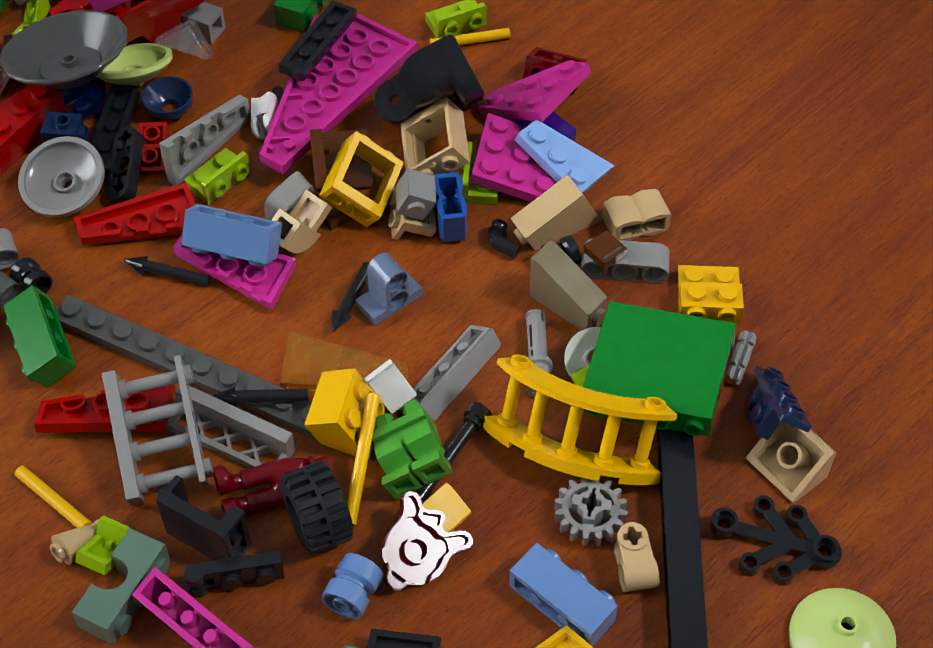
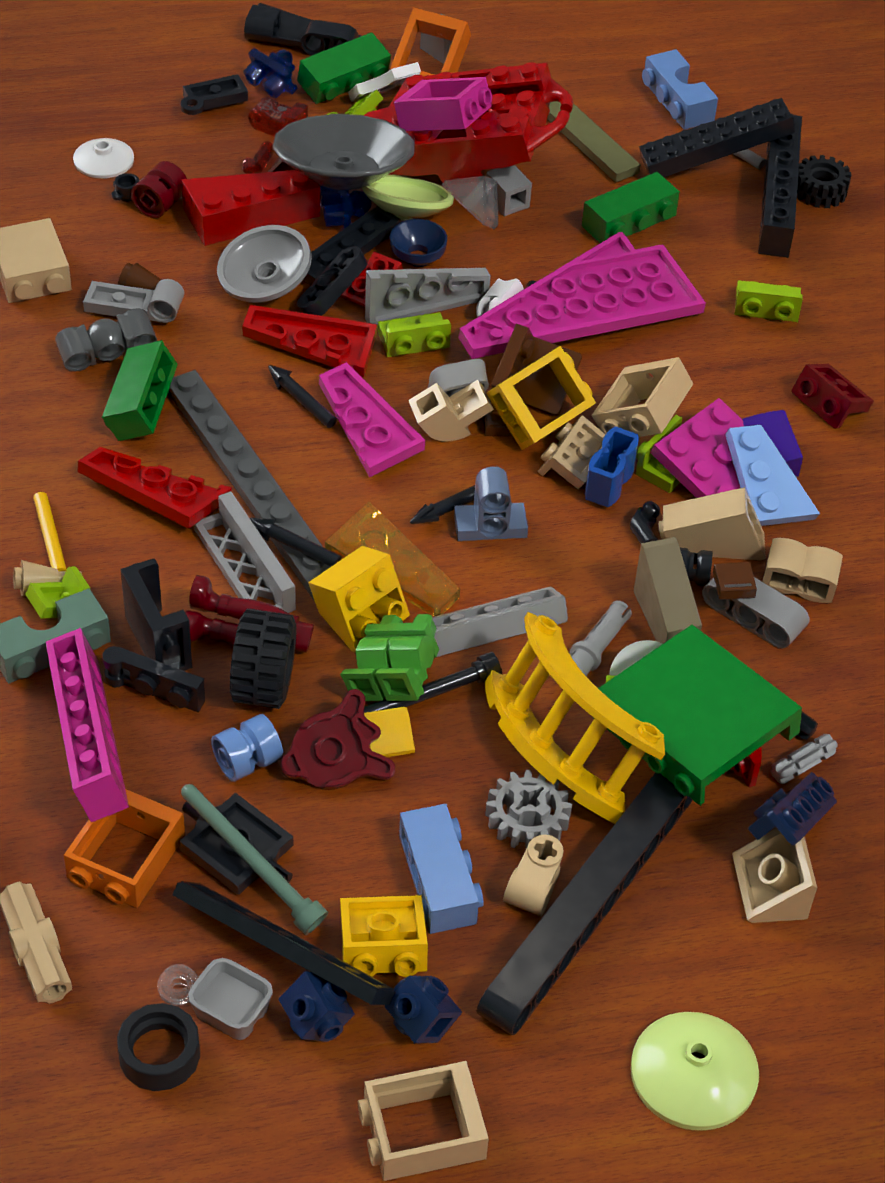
camera: 30 degrees right, 5 degrees down
(28, 273) = (175, 335): black wheel -> none
(63, 124) = (302, 220): dark blue brick -> none
(124, 421) = (151, 494): light grey fence -> none
(231, 234) = (374, 385): medium blue brick -> none
(317, 40) = (600, 253): black plate -> none
(362, 455) = (342, 643): yellow piece -> none
(391, 386) = (420, 590): white bracket -> none
(415, 194) = (581, 435): light grey brick -> none
(426, 78) = (678, 327): black piece -> none
(479, 37) = (767, 326): yellow bar -> none
(536, 94) = (786, 403): dark pink plate -> none
(710, 292) = (822, 682): yellow plate -> none
(780, 540) = (700, 946): black plant -> none

